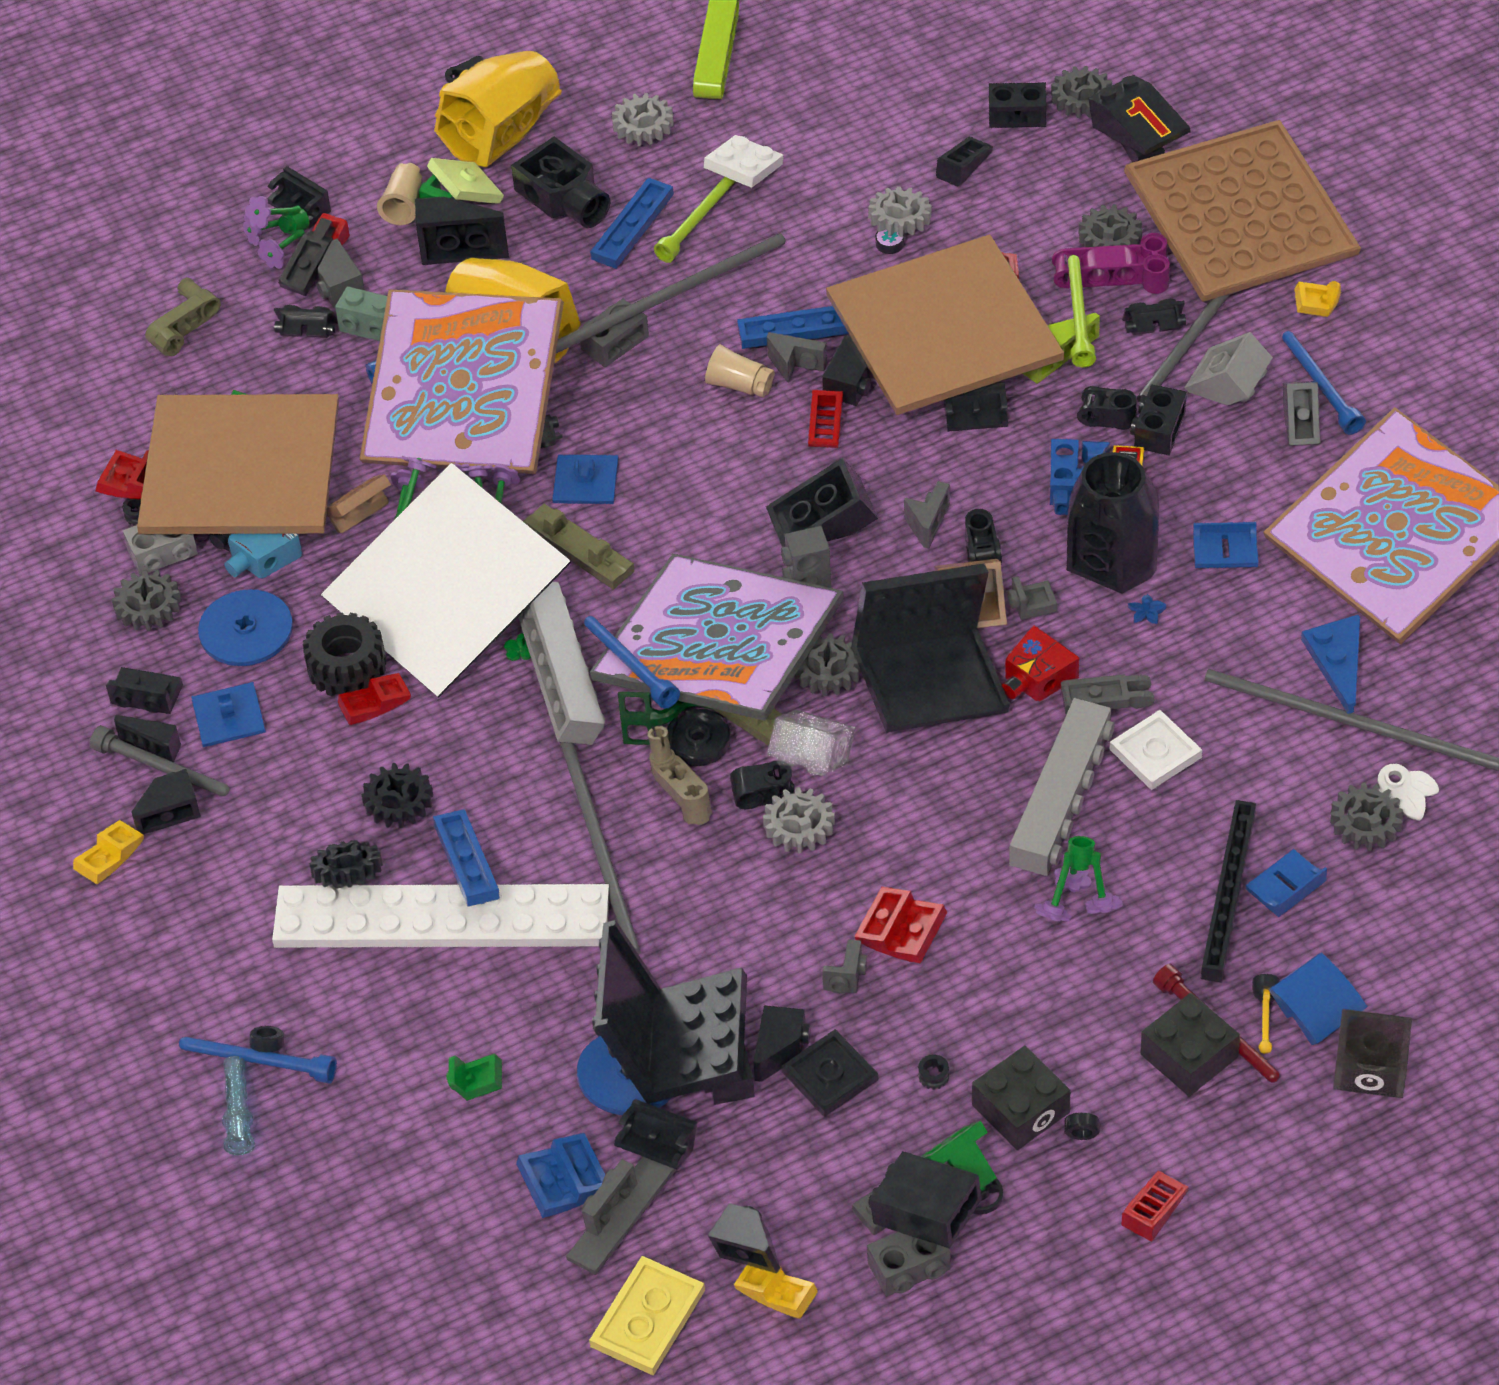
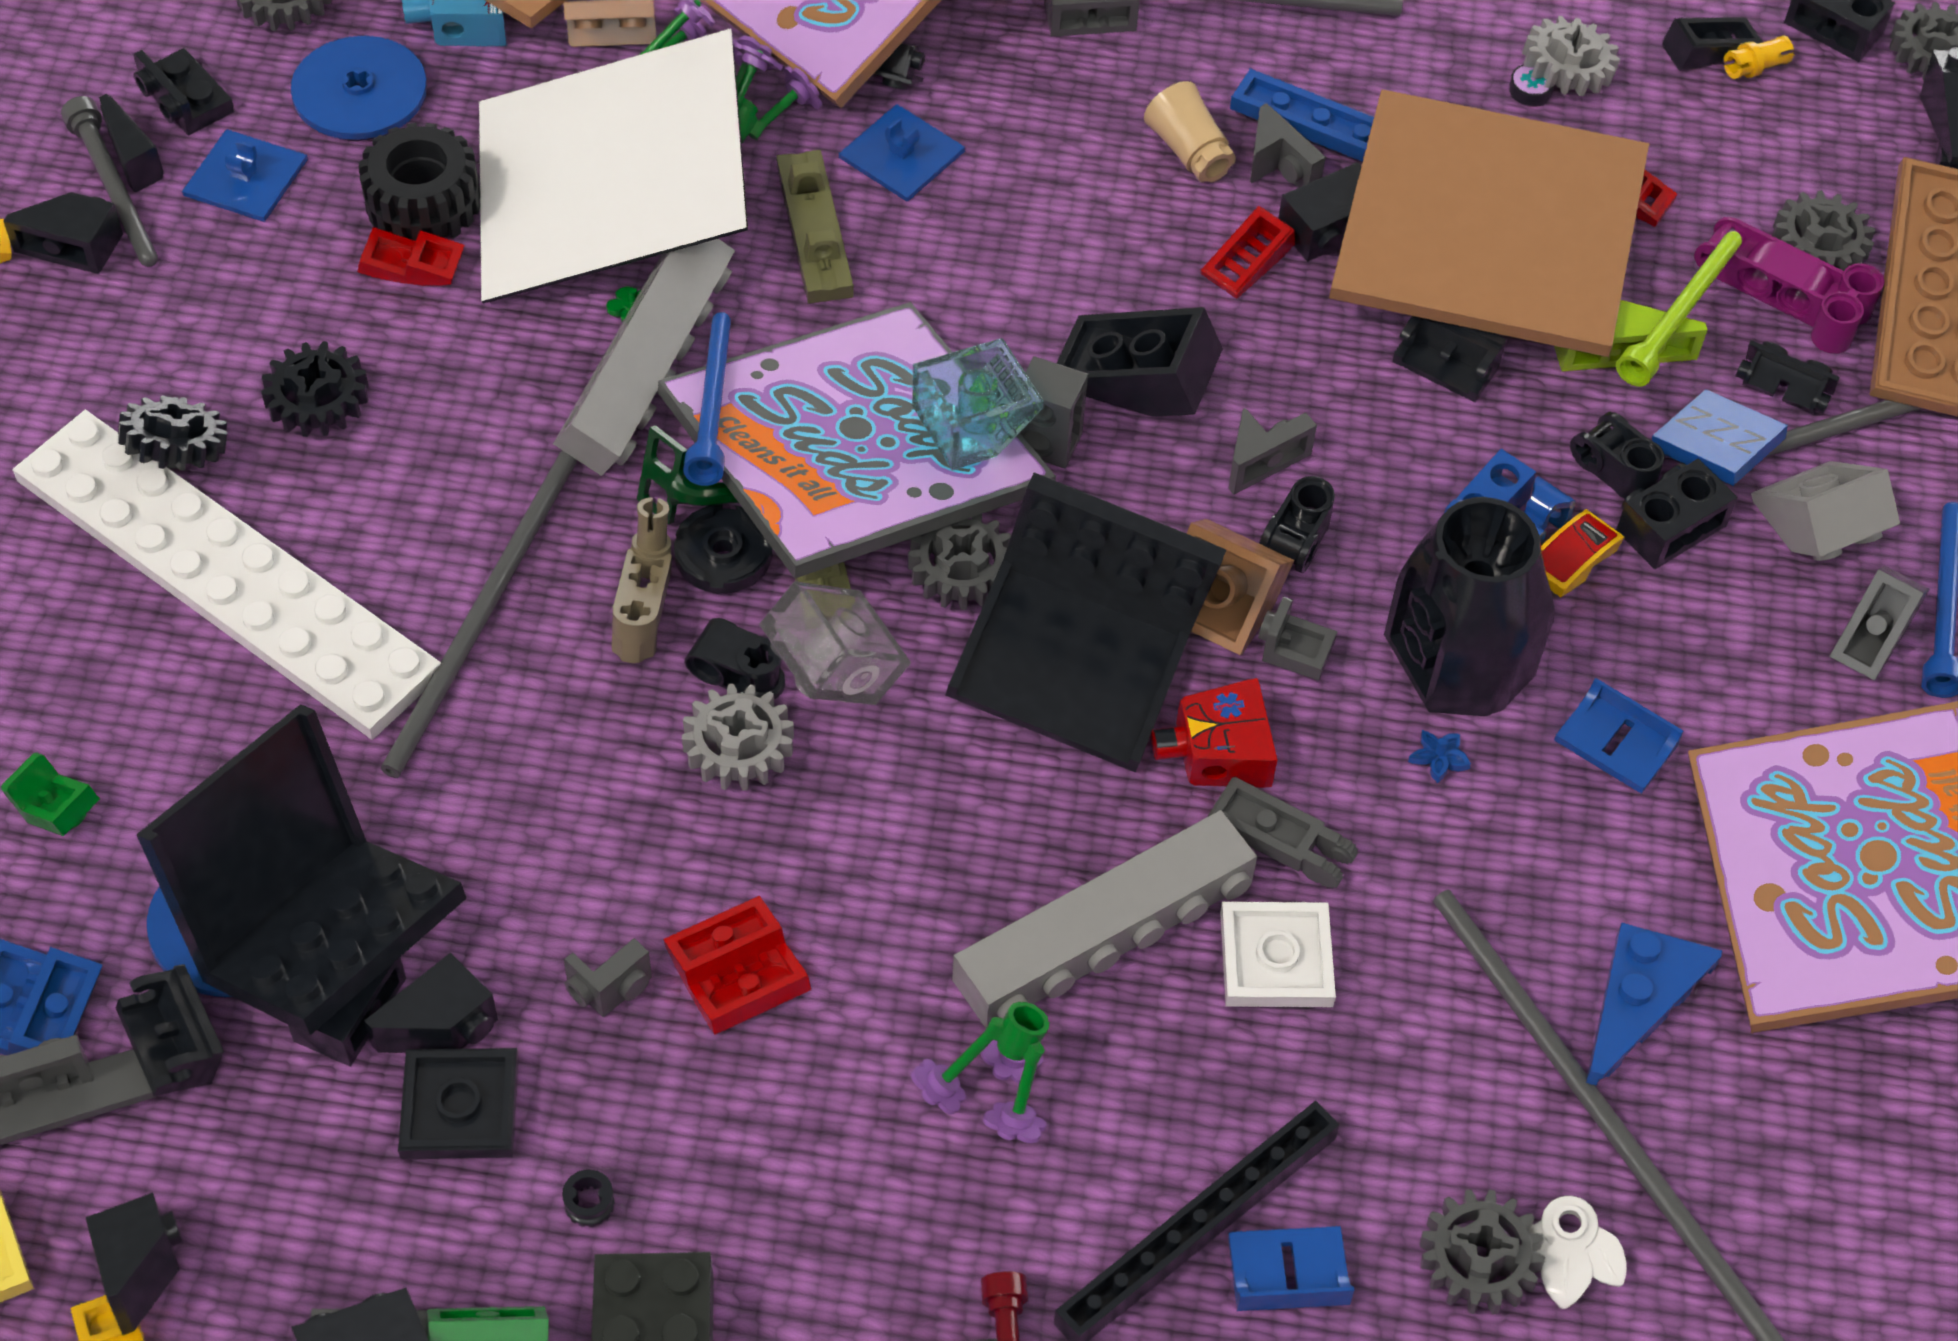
camera: 30 degrees right, 5 degrees up
(466, 858) = (304, 516): blue plate -> none
(775, 576) = (974, 401): none -> clear light blue slope
(994, 156) = (1753, 57): none -> yellow pin
(1148, 365) = (1721, 435): none -> tile

